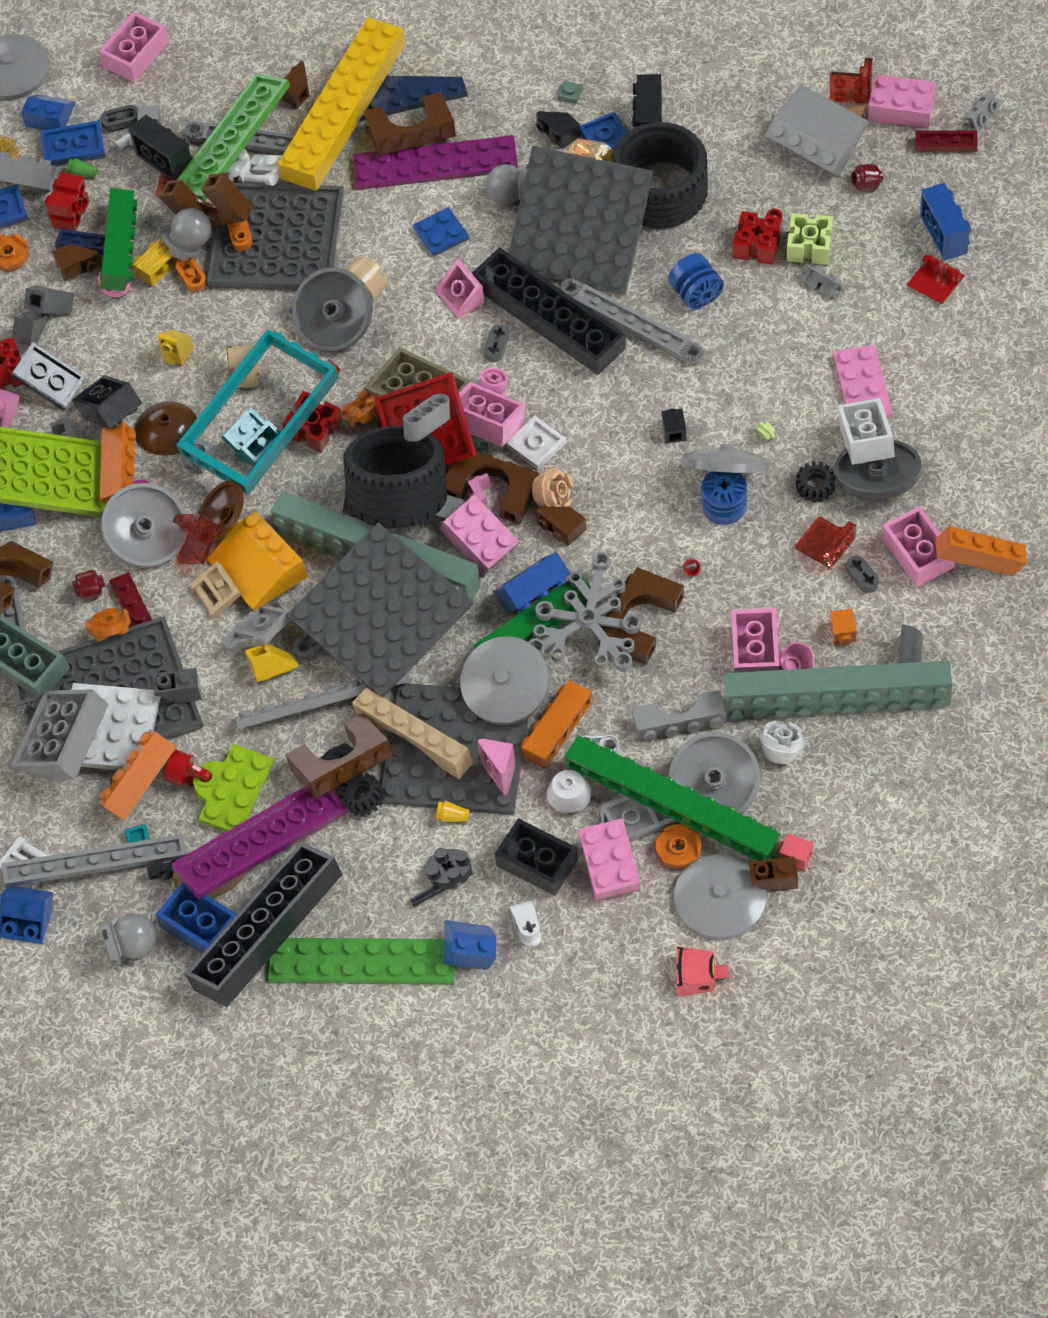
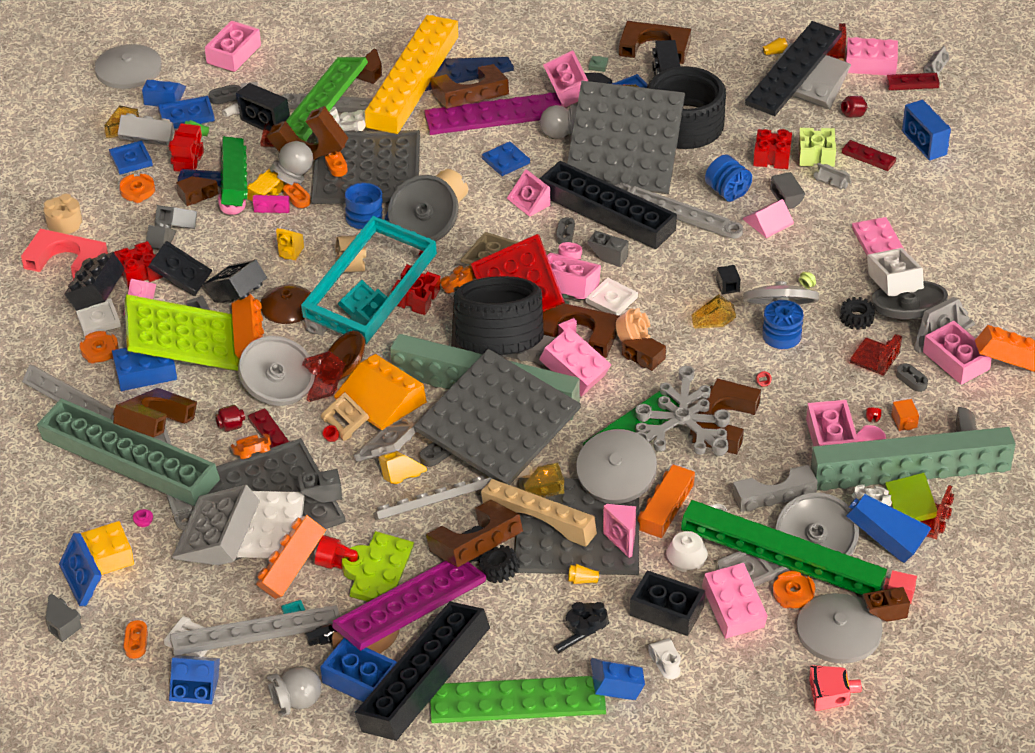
camera: 10 degrees left, 15 degrees down
(160, 286) = (271, 204): none -> dark pink plate
(198, 608) = (331, 433): none -> red hinge
(264, 298) = (362, 203): none -> blue wheel
(423, 695) = (546, 481): none -> clear yellow slope
(426, 417) = (522, 266): light grey beam -> none
(524, 119) = (566, 77): none -> bright pink slope
(532, 583) = (627, 394): blue brick -> none
(542, 374) = (609, 248): none -> dark grey slope
(624, 48) = (638, 33): none -> reddish brown arch
(650, 473) = (715, 313): none -> clear yellow slope
(737, 339) = (770, 218): none -> bright pink slope
(764, 299) = (787, 188): none -> dark grey brick
(789, 78) = (775, 47): none -> yellow cone
(793, 778) = (888, 526): none -> blue slope
(797, 124) = (793, 68): none -> black plate
(808, 621) = (873, 413): none -> red hinge
(828, 740) = (913, 497): none -> lime tile
(848, 764) = (944, 512): none -> clear red bracket
(872, 250) = (868, 155): none -> dark red plate
(907, 498) = (941, 315): none -> light grey wing
(936, 279) = (926, 171): red hinge -> none

